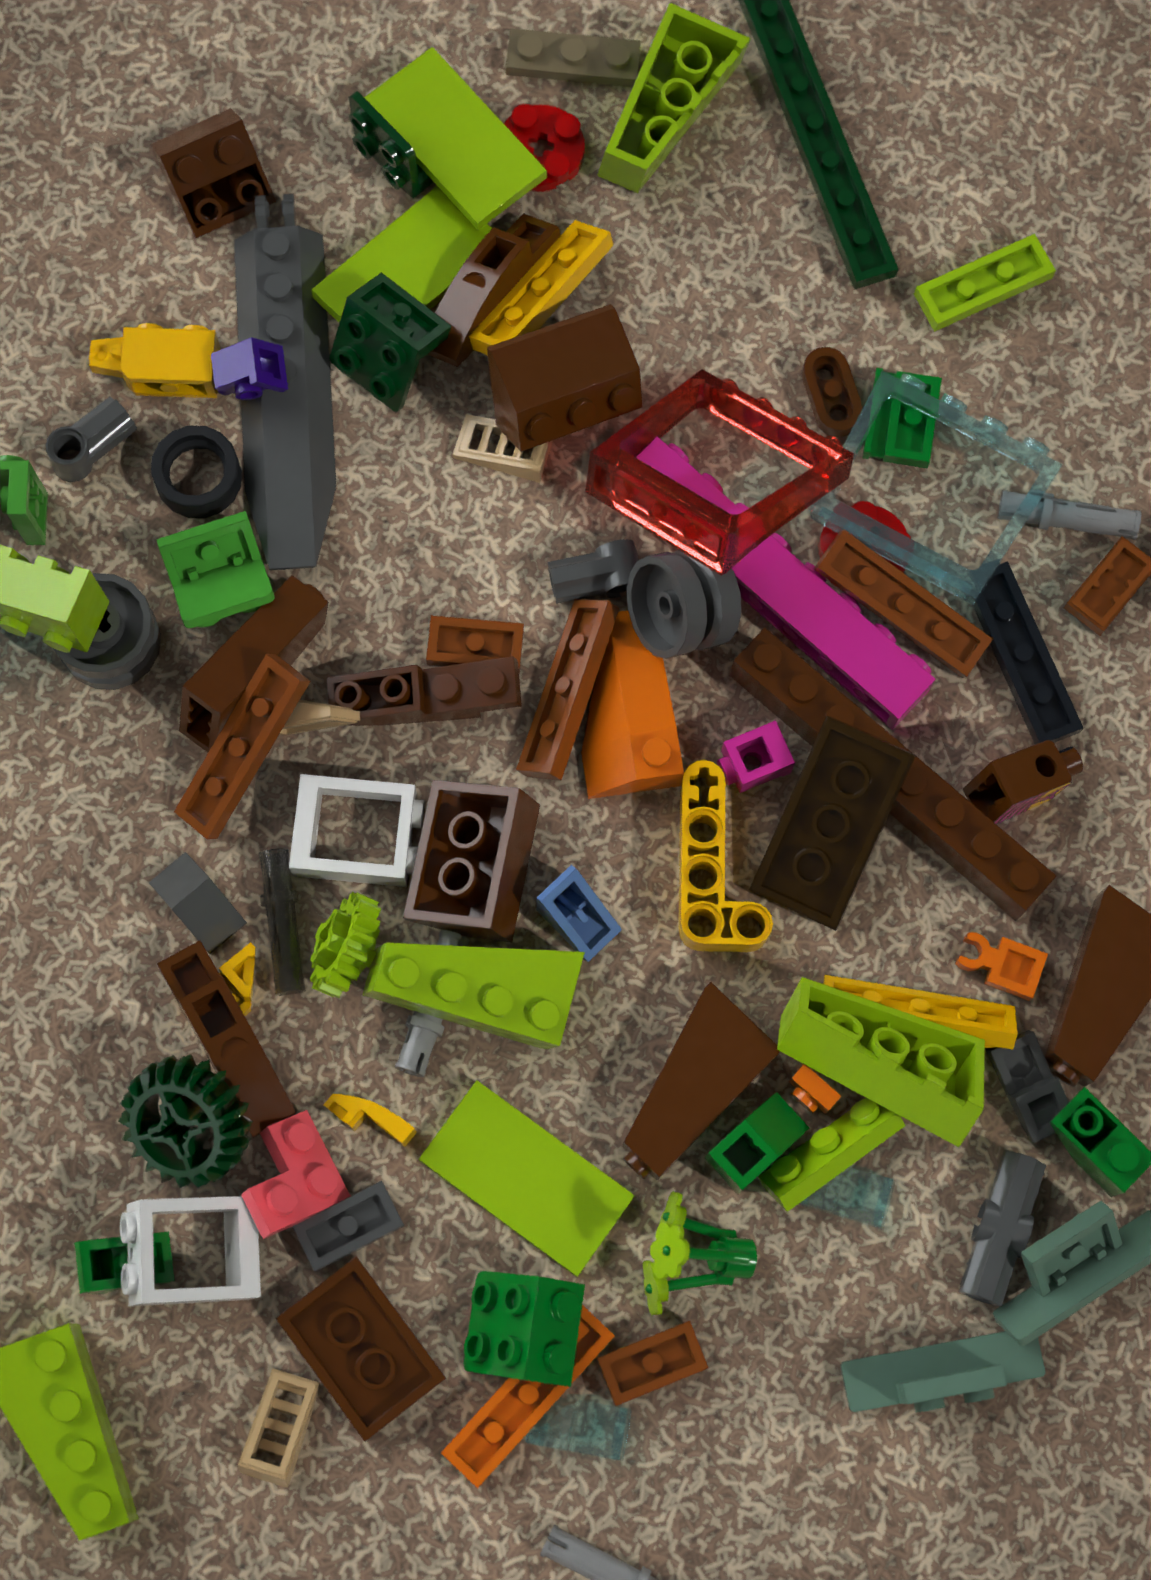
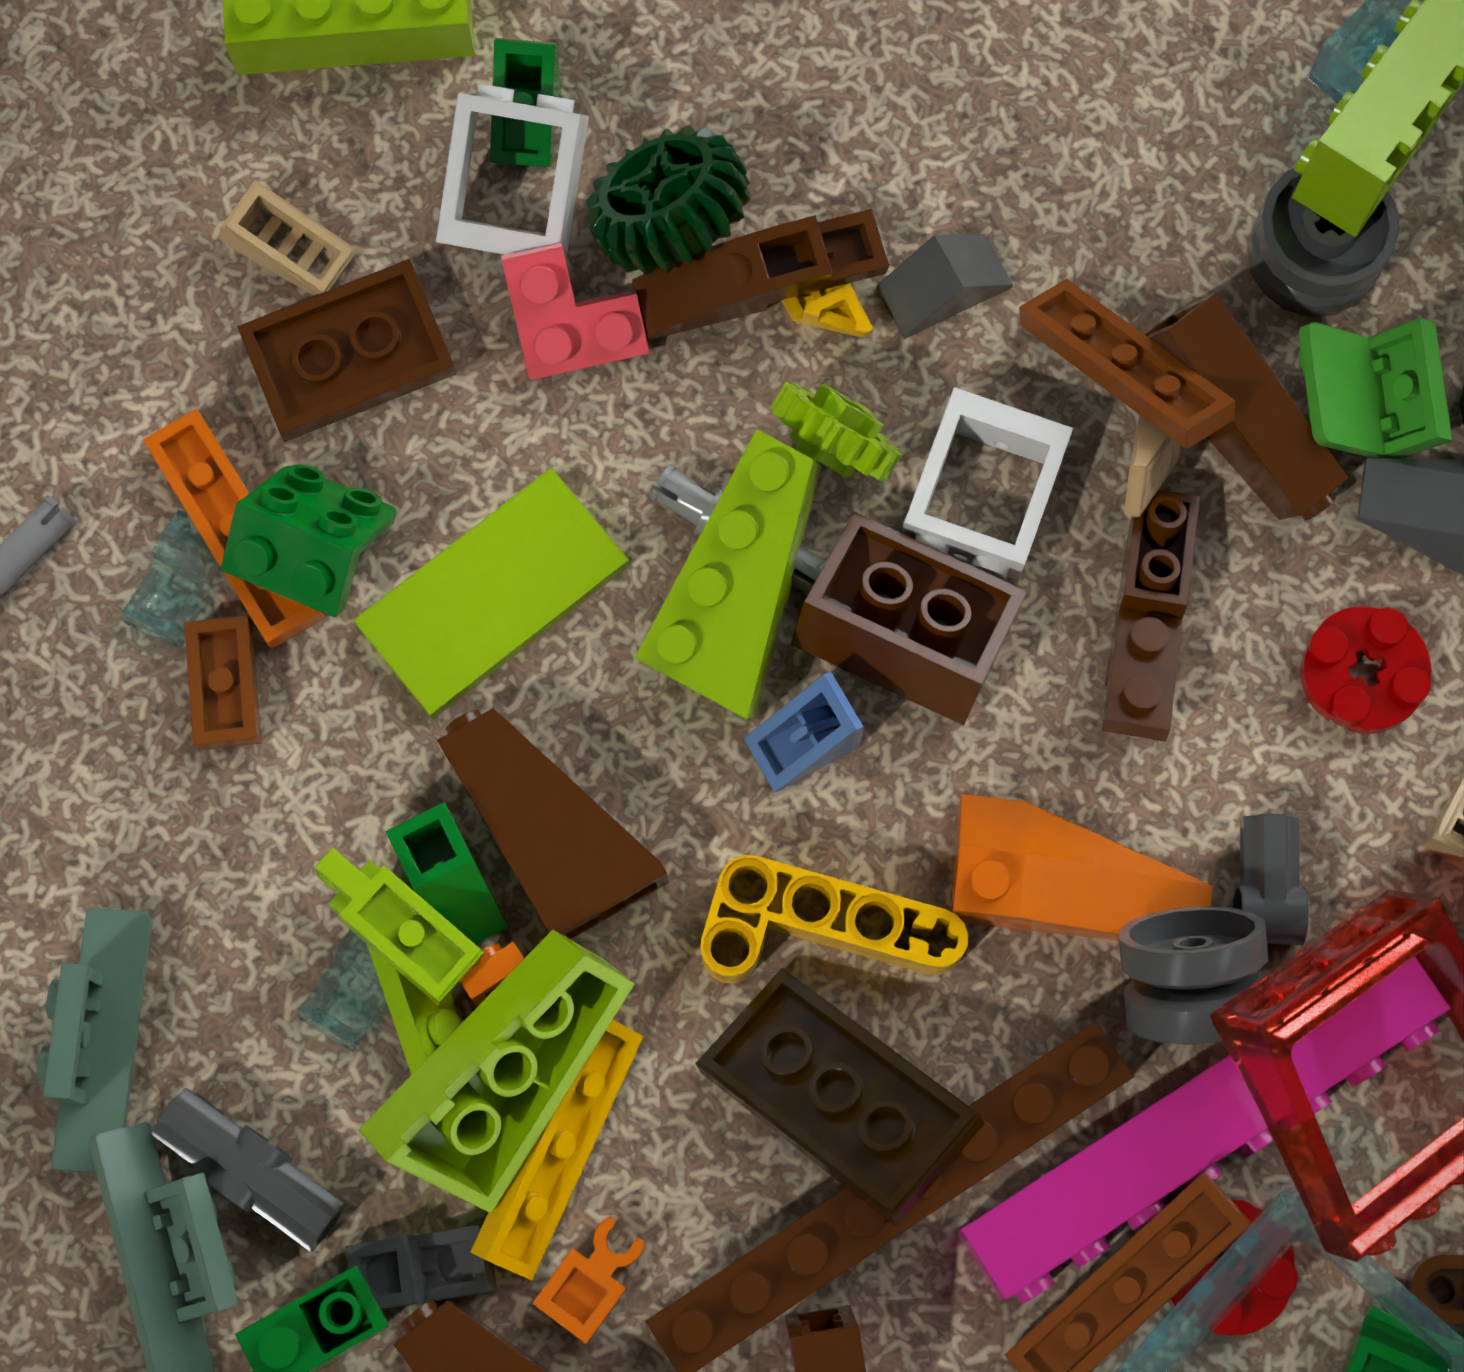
camera: 110 degrees right, 0 degrees up
(281, 917) = (889, 375): clear smoke pin -> none
(348, 1226) = (494, 369): dark grey plate -> none
(355, 1110) = (611, 435): yellow slope -> none
(430, 516) = (1350, 701): none -> red plate
(472, 640) = (1206, 697): dark orange plate -> none
(567, 689) = (1115, 802): dark orange plate -> none
(727, 1256) = (317, 805): plant -> none
(763, 743) = (978, 1042): dark pink brick -> none
(807, 1160) = (398, 925): none -> lime hinge

